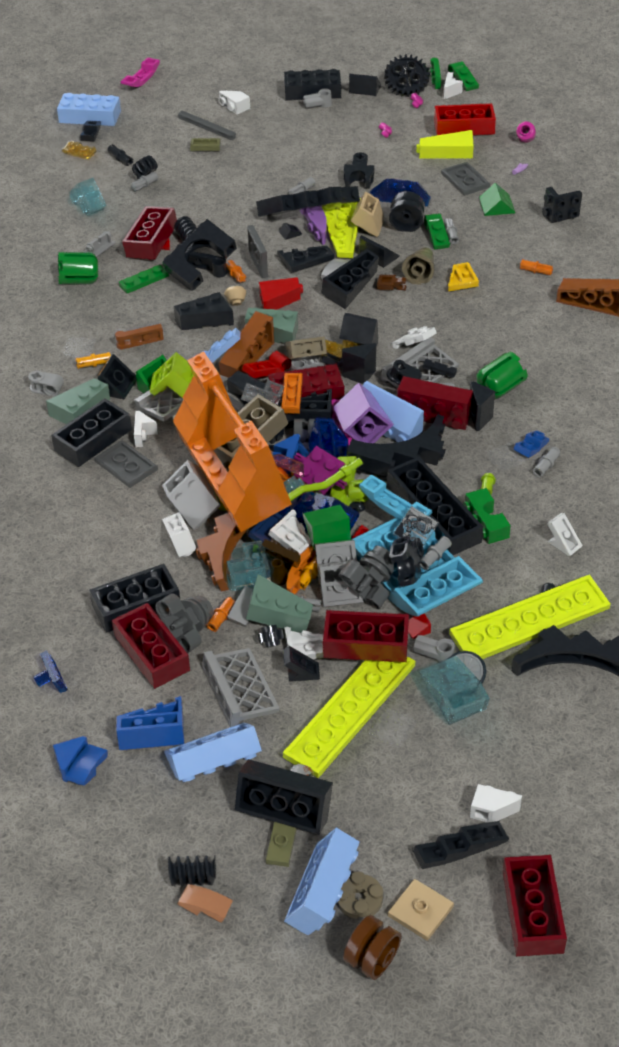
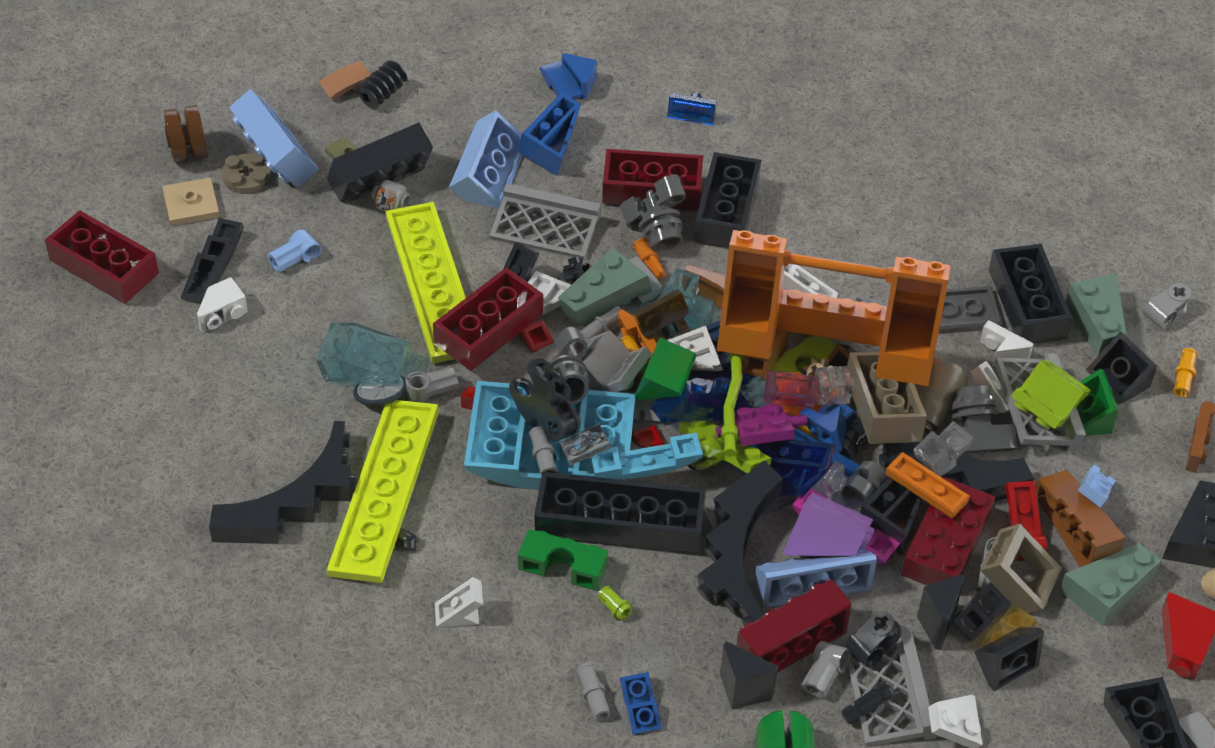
camera: 125 degrees right, 5 degrees up
(399, 800) = (300, 247): none -> light blue piece

